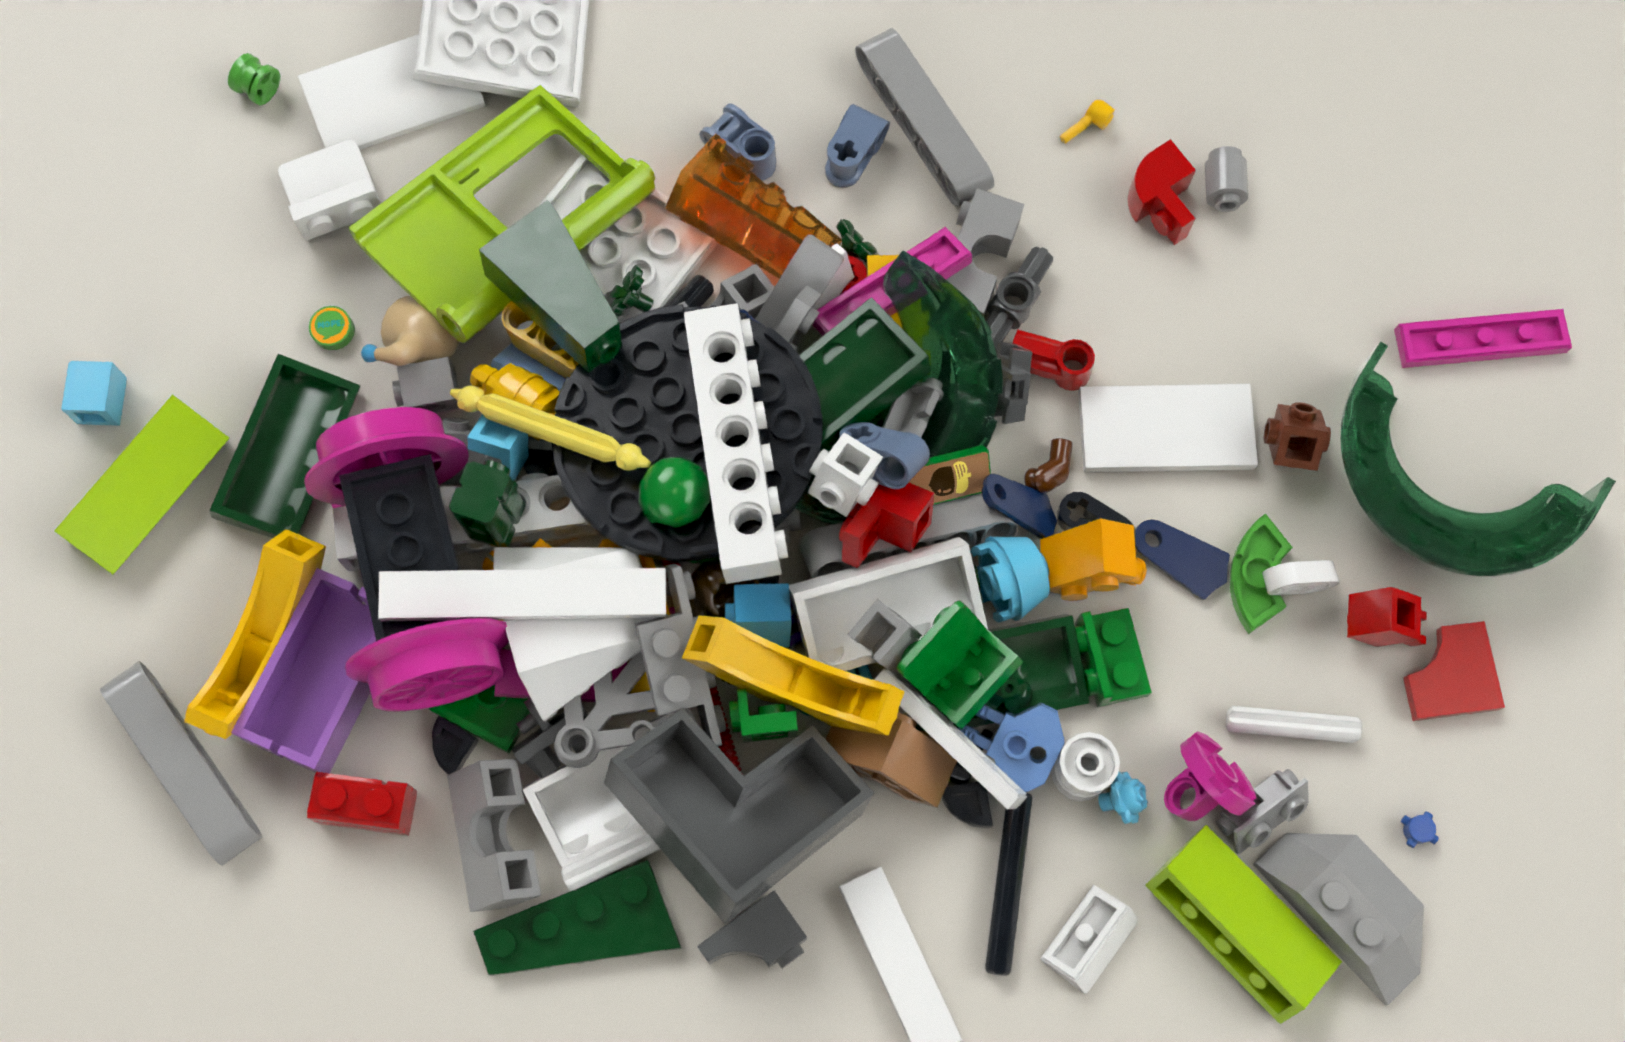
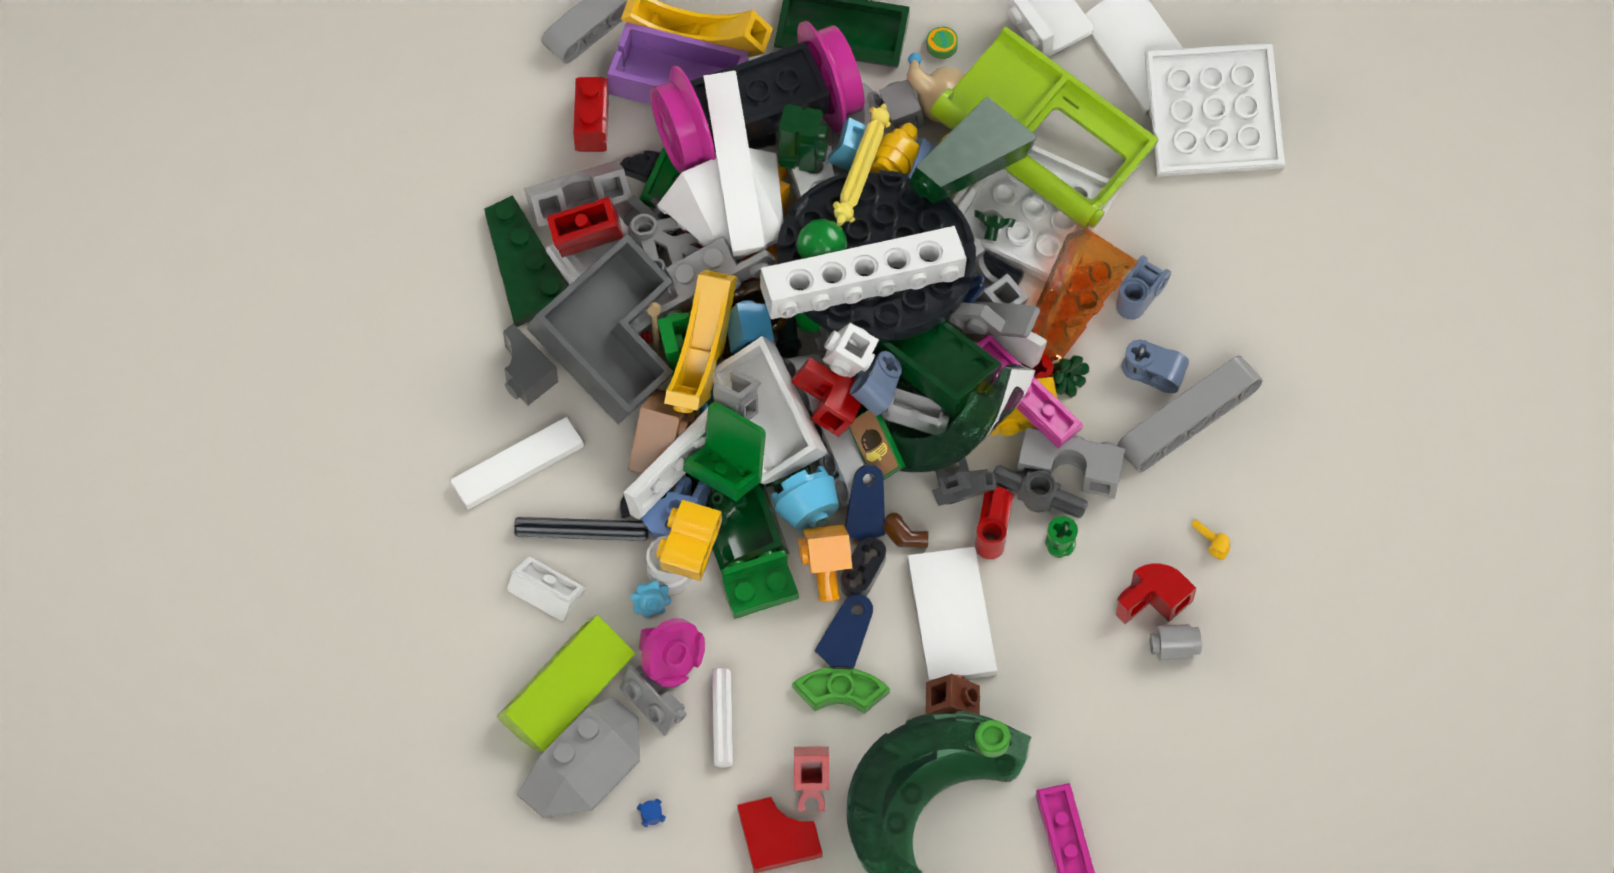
camera: 85 degrees right, 10 degrees down
(564, 825) = (585, 227): none -> red brick
(751, 753) = (654, 310): none -> tan hinge
(1077, 271) = (1055, 530): none -> green bush
(1085, 726) = (690, 539): none -> yellow brick
(1300, 577) = (836, 709): white beam -> none
(1387, 384) = (992, 738): none -> bright green tile

